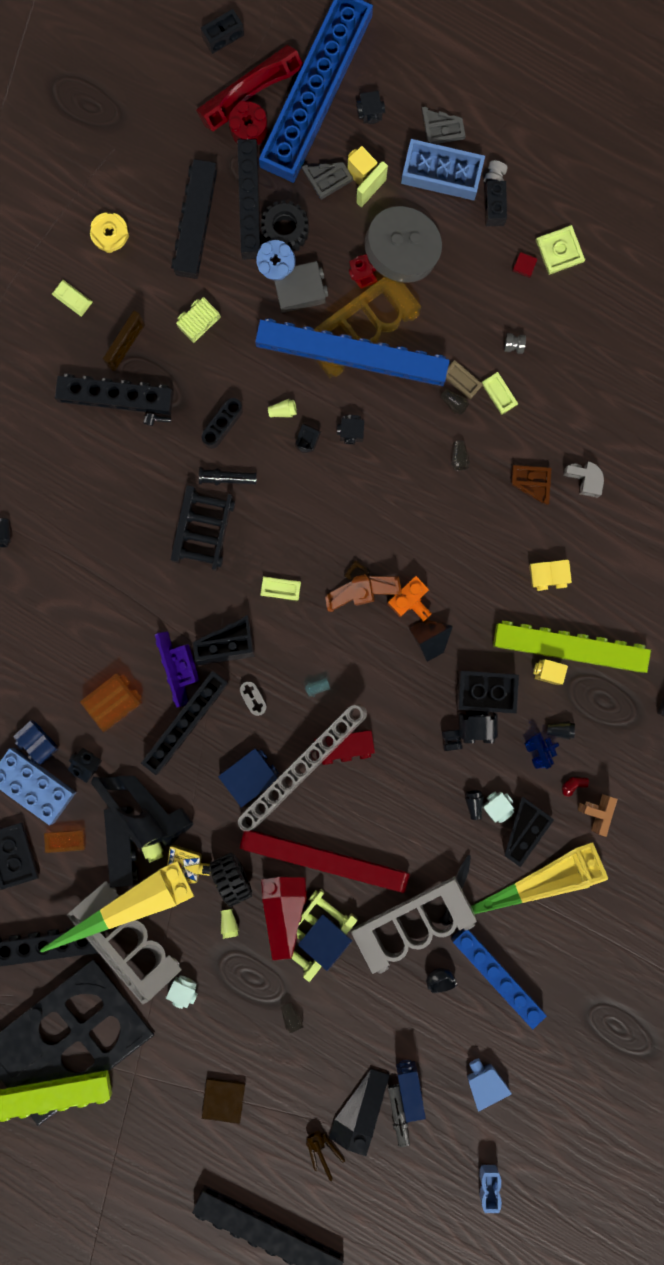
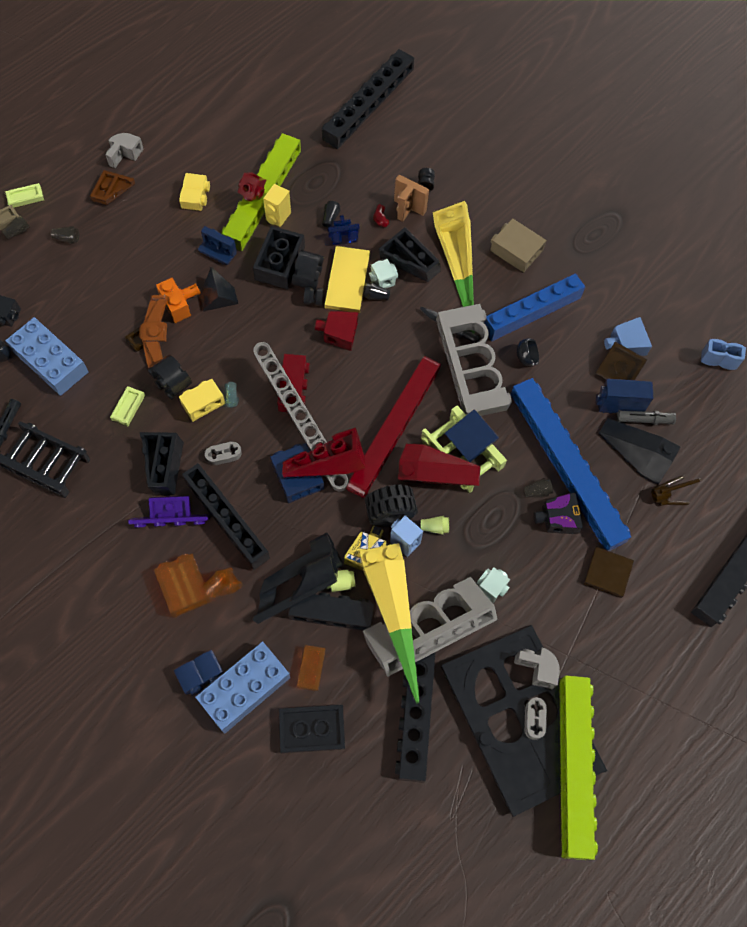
camera: 80 degrees left, 20 degrees down
(64, 1050) = (530, 718): none -> light grey beam
(84, 764) = (237, 626): black brick -> none
(111, 1056) = (544, 664): none -> light grey brick
(119, 739) = (222, 583): none -> clear orange piece
(205, 900) = (406, 534): none -> light blue brick
(262, 812) = (335, 457): none -> dark red wedge
(268, 1044) = (560, 515): none -> torso
(301, 661) = (202, 399): none -> light yellow brick
(311, 492) = (47, 356): none -> medium blue brick
(316, 624) = (170, 376): none -> black brick
(325, 1044) = (570, 465): none -> blue brick
(419, 777) = (339, 328): none -> dark red torso
(449, 1081) = (621, 363): none -> dark brown tile
(484, 621) = (217, 246): none -> dark blue bracket
(485, 769) = (347, 279): none -> light yellow tile
(560, 641) = (251, 186): none -> dark red brick
(574, 944) = (517, 245): none -> dark tan brick
(635, 825) = (426, 178): none -> black wheel

